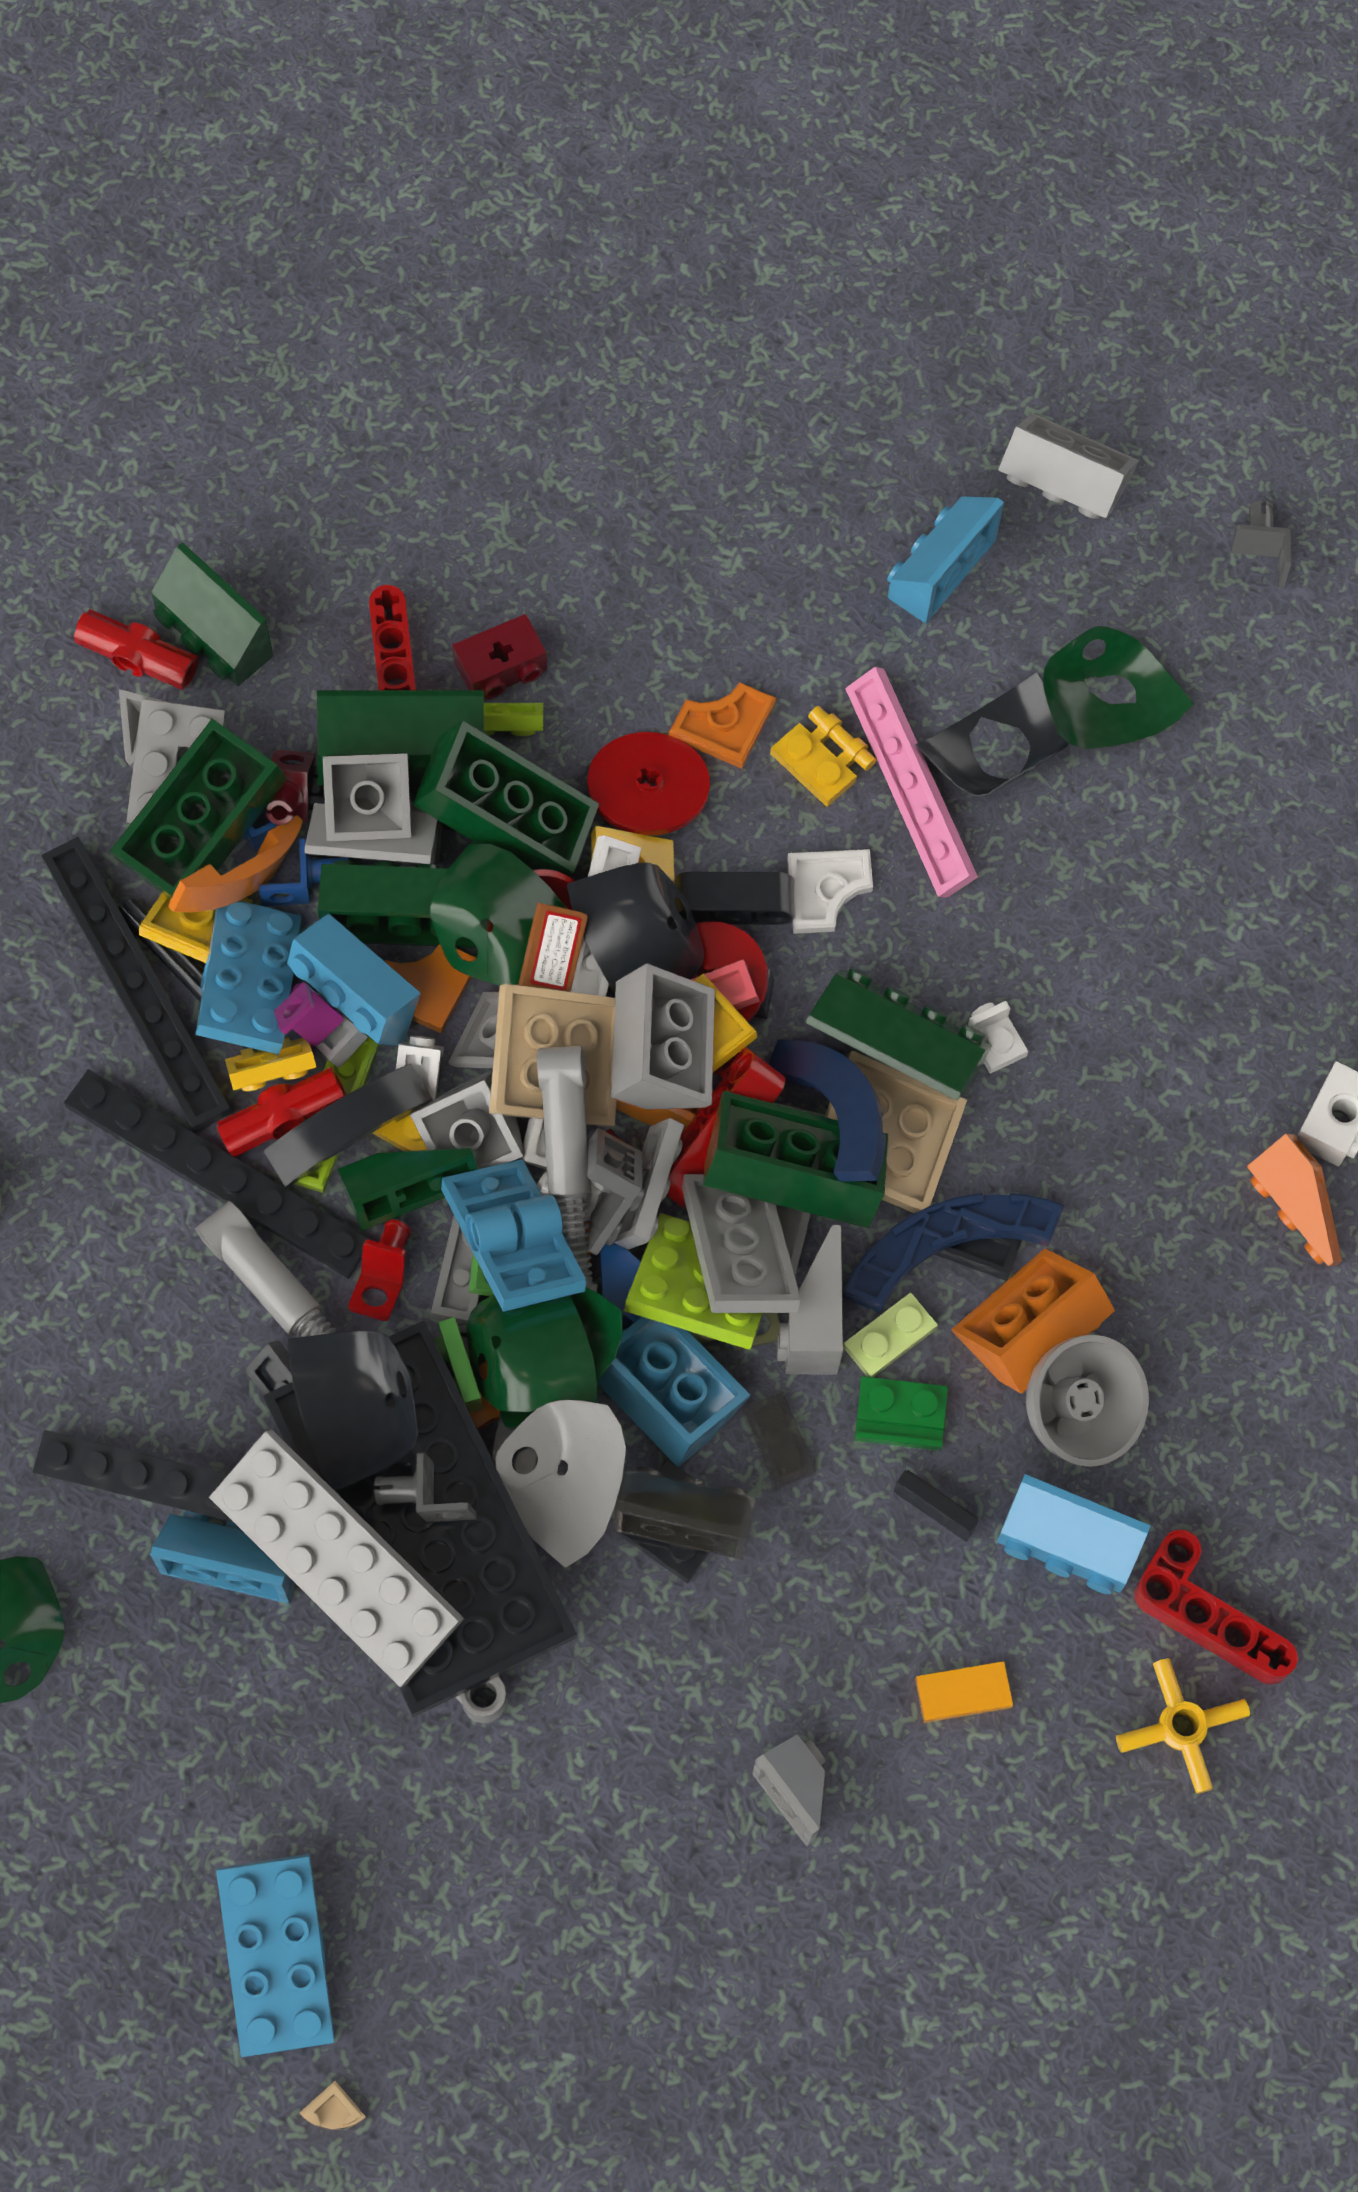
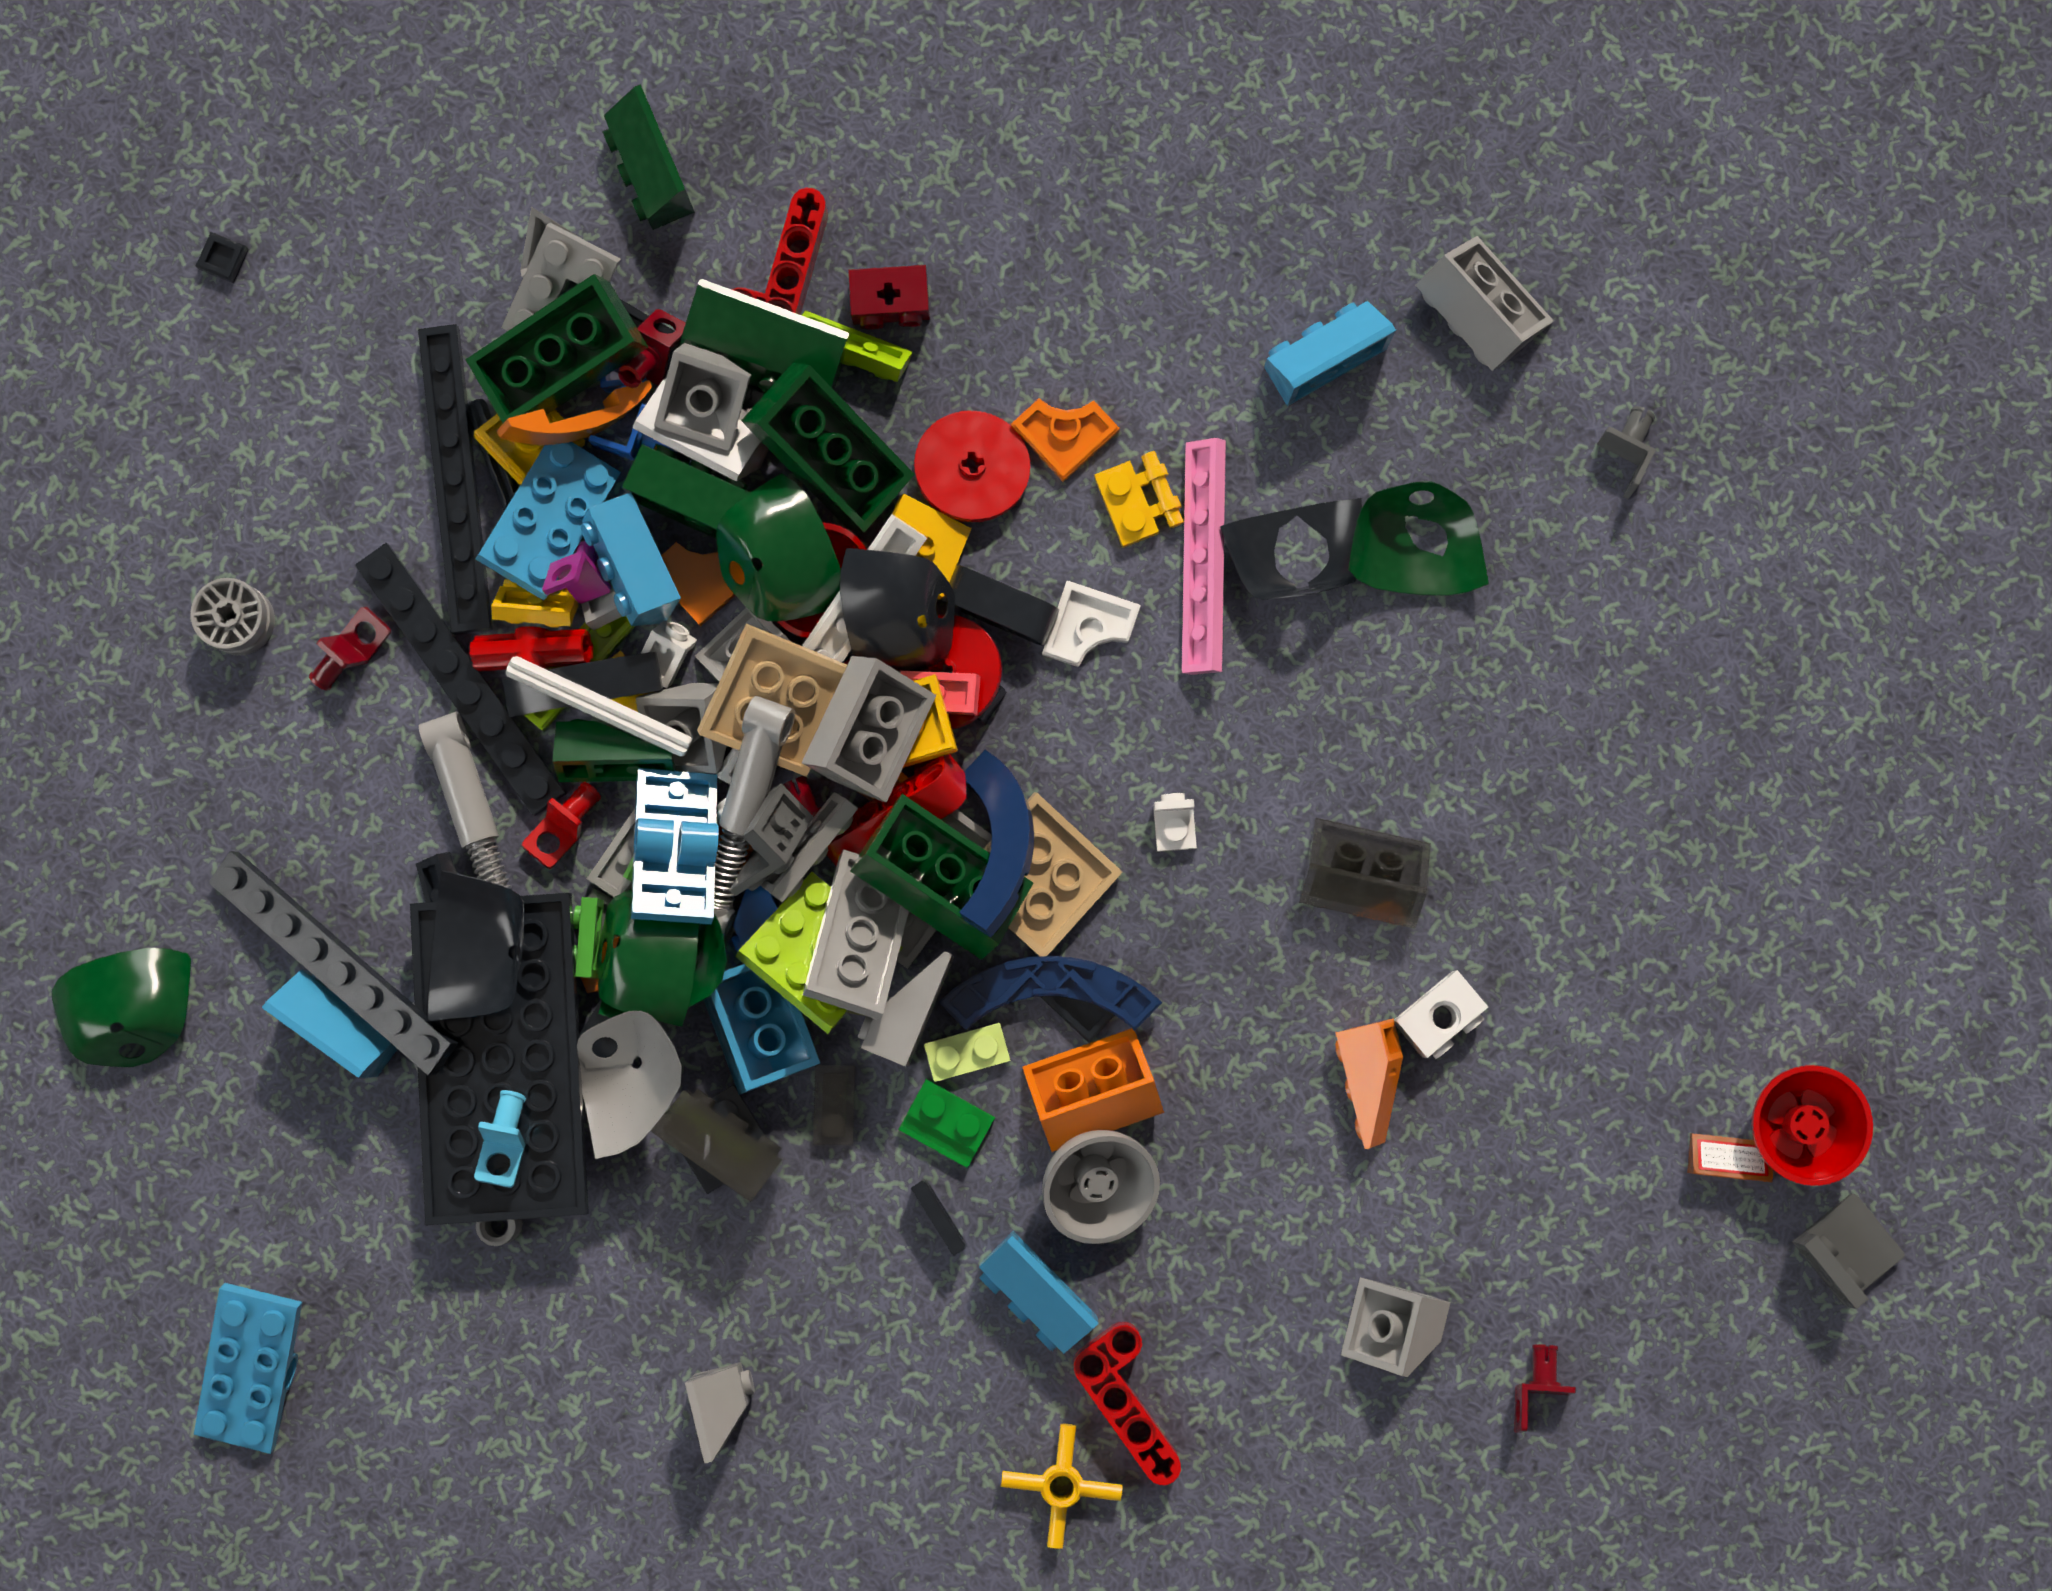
camera: 30 degrees right, 15 degrees up
(89, 1187) = (347, 649): none -> dark red bracket
(136, 649) = (574, 162): red piece -> none
(333, 2109) = (251, 1504): tan tile -> none
(336, 1558) = (408, 1075): plate -> none
(378, 1129) = (598, 706): none -> white axle
(420, 1489) = (501, 1043): dark grey bracket -> none
(461, 1583) = (502, 1139): none -> medium azure bracket
(553, 948) = (809, 605): slope -> none
(900, 1033) = (1085, 793): dark green slope -> none
(964, 1692) = (895, 1380): light orange tile -> none
(1204, 1012) = (1366, 873): none -> clear smoke slope

